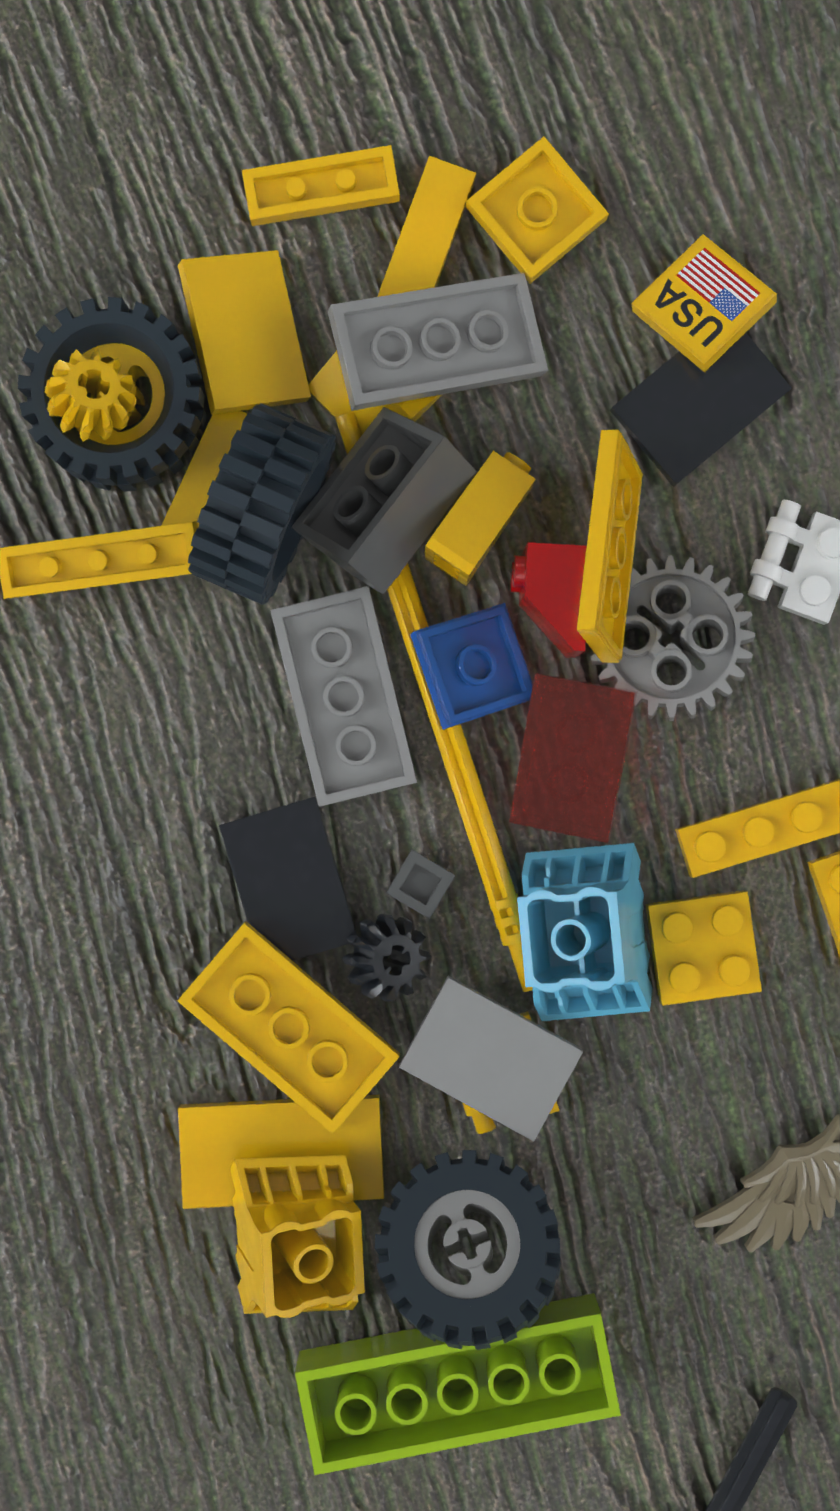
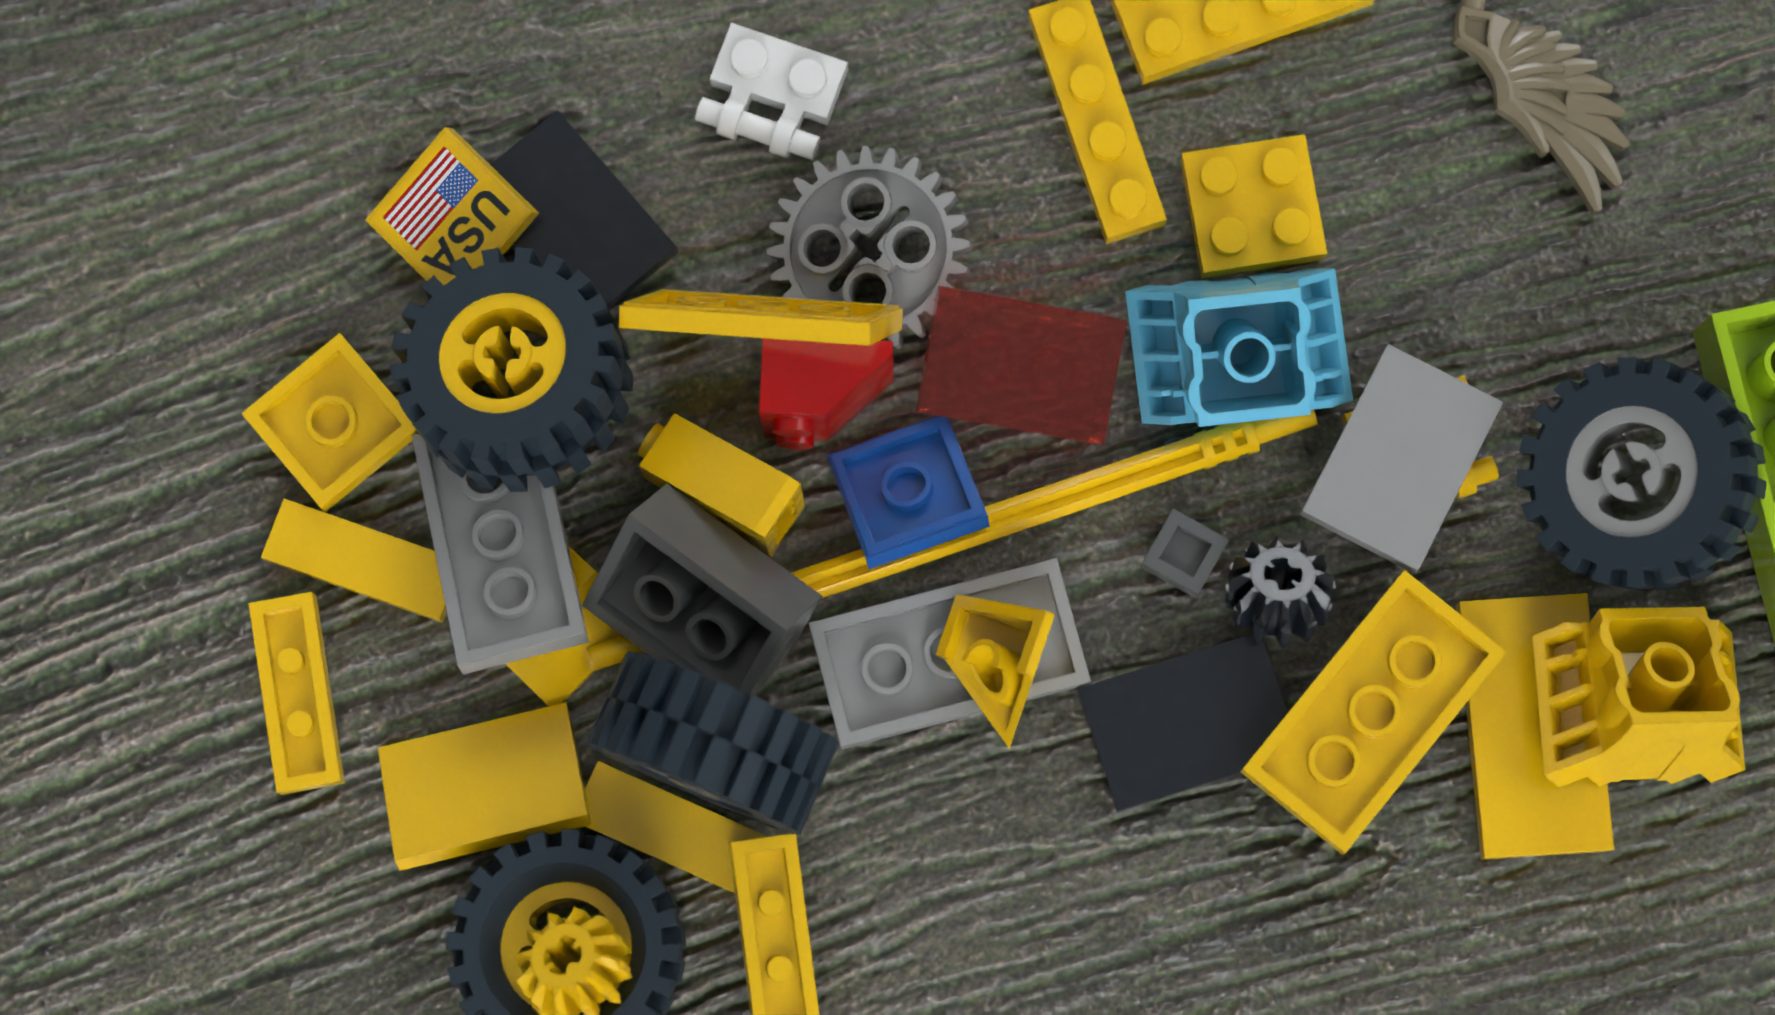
camera: 90 degrees left, 10 degrees down
(336, 731) = (995, 655): none -> yellow slope
(555, 387) = (560, 388): none -> black wheel

